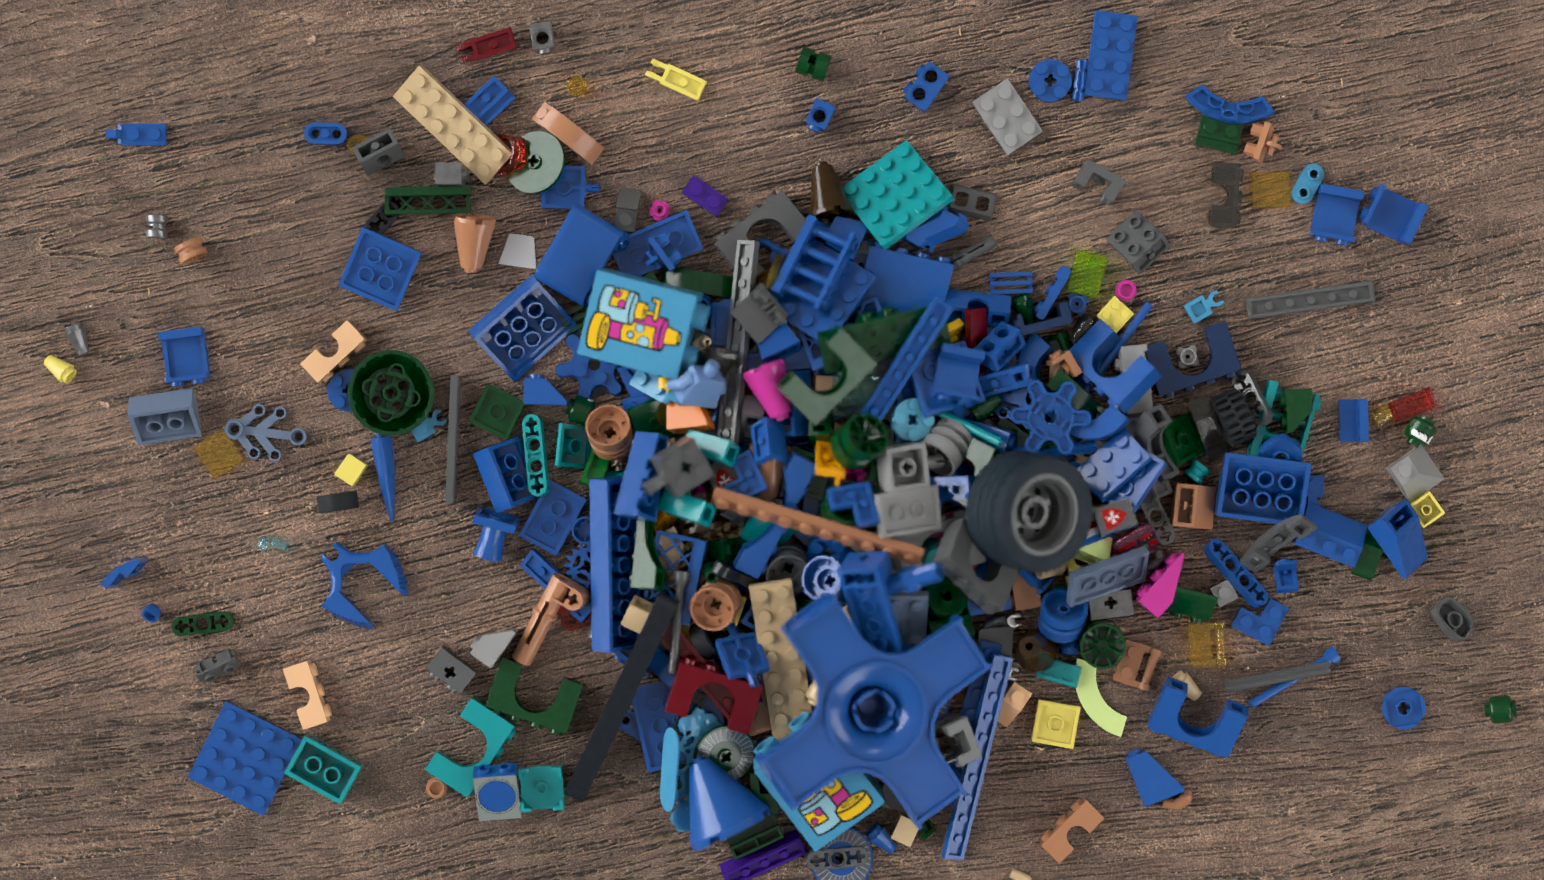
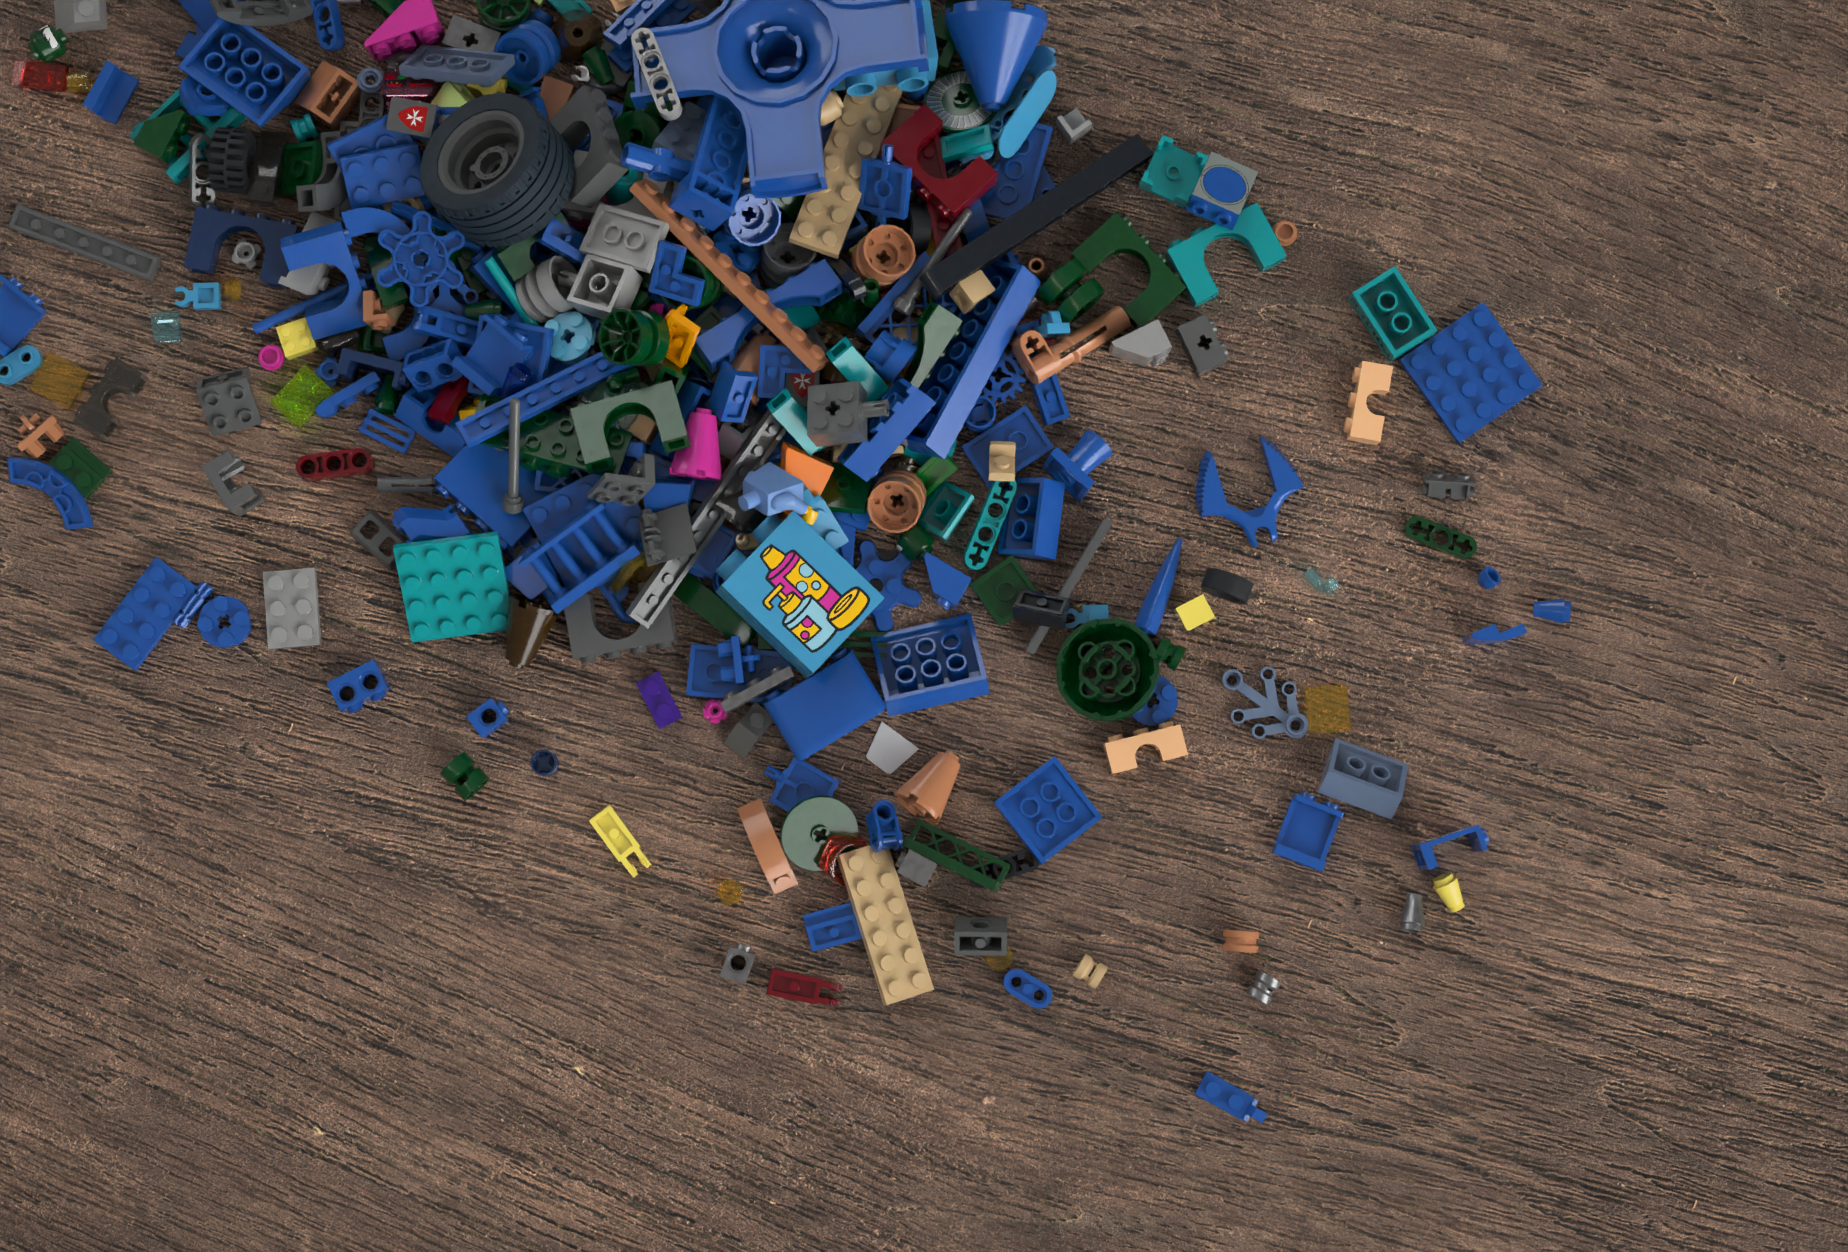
camera: 160 degrees left, 5 degrees down
(91, 615) = (1553, 610): none -> blue cone
(94, 389) = (1424, 853): none -> blue panel
(287, 170) = (1084, 968): none -> tan wheel
(353, 430) = (1170, 653): none -> dark green wheel
(462, 411) = (1041, 608): none -> black slope
(488, 188) = (884, 832): none -> blue piece
(549, 502) = (1002, 461): none -> tan bracket
(562, 654) = (1065, 286): none -> dark green wheel
(567, 623) = (1052, 325): none -> dark azure tile
(610, 660) = (1042, 273): none -> nougat cone
(634, 783) = (1073, 125): none -> light grey panel
(637, 241) = (756, 688): none -> flat silver plate
(669, 533) = (889, 355): none -> blue piece
(702, 723) = (966, 143): none -> teal tile
(764, 105) = (541, 765): none -> dark blue wheel
(801, 336) = (626, 488): none -> dark grey bracket
(857, 405) = (617, 381): none -> dark green arm
(886, 278) = (512, 501): none -> dark grey piece
(930, 365) = (516, 380): none -> clear blue cone
(951, 644) = (655, 74): none -> light grey beam
(1004, 634) = (598, 64): none -> dark green cone
(1039, 228) = (323, 460): none -> dark red beam
(1166, 537) = (369, 73): none -> sand blue plate
(1181, 325) = (232, 289): none -> clear yellow plate
(1215, 272) = (166, 326): none -> clear light blue slope

